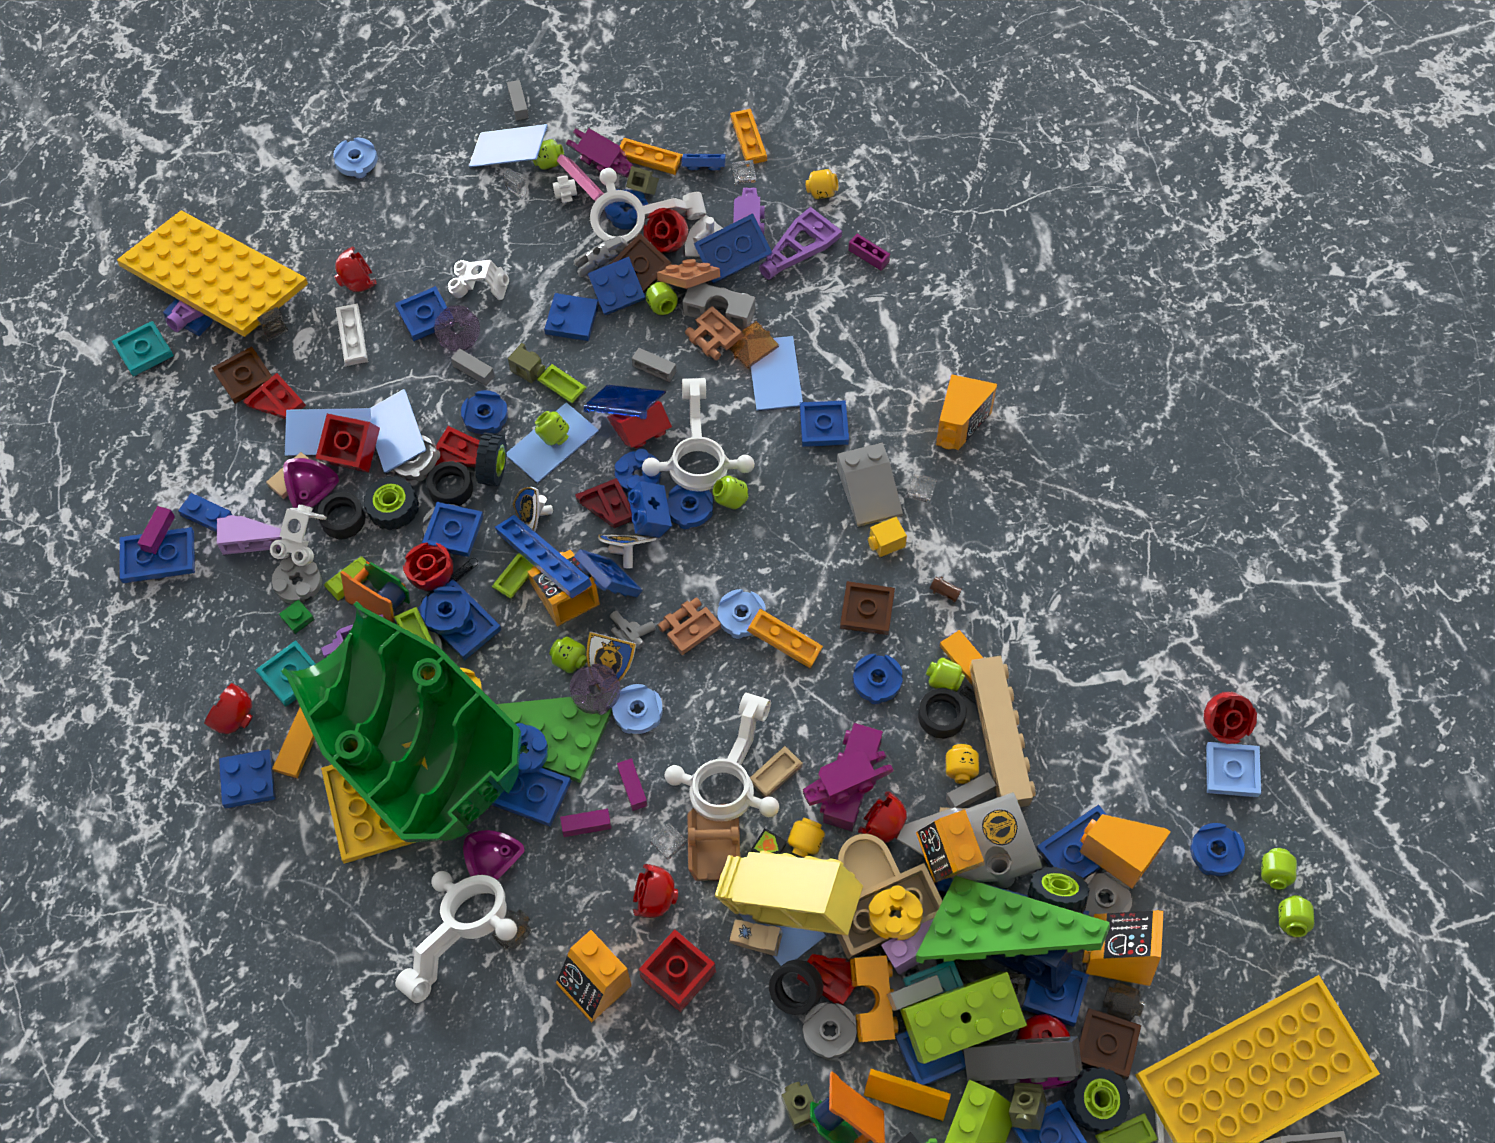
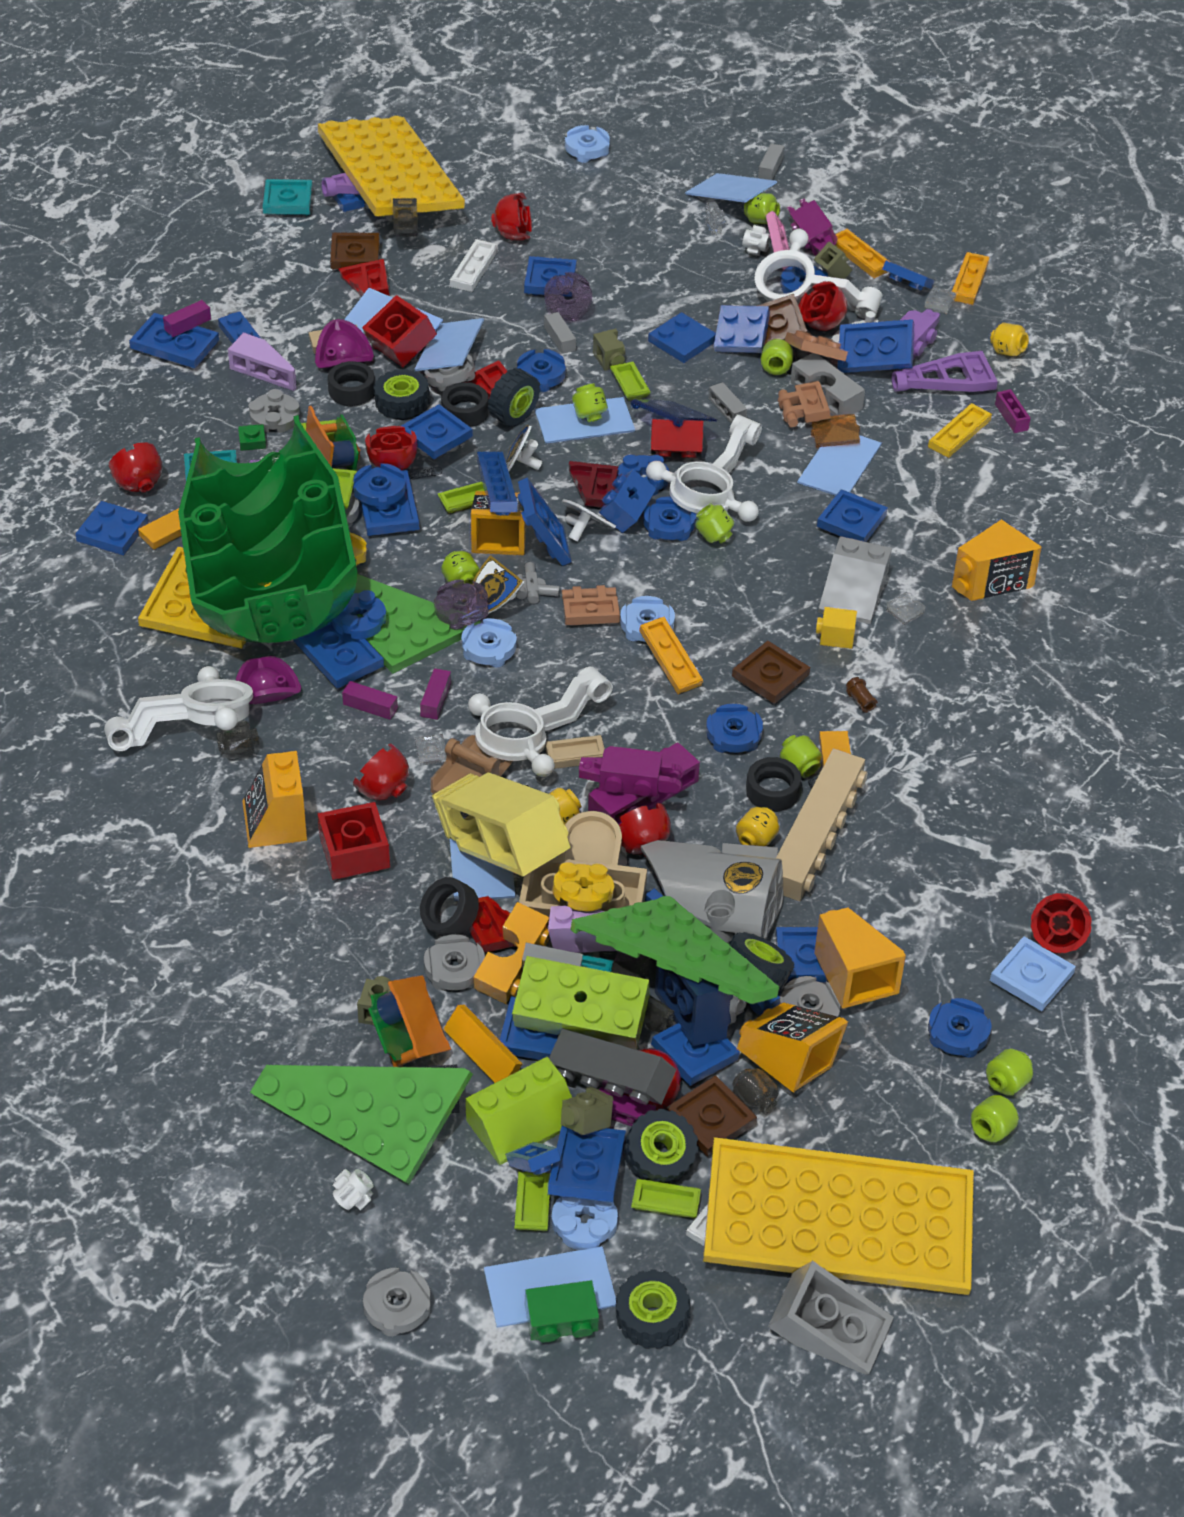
camera: 30 degrees right, 15 degrees down
(295, 542) = (287, 377): white piece -> none
(468, 275) = (635, 276): white piece -> none
(599, 255) = (747, 297): light grey hinge -> none
(756, 937) = (448, 857): tan leg -> none
(842, 291) = (959, 430): none -> yellow tile
(950, 846) = (683, 858): light orange slope -> none

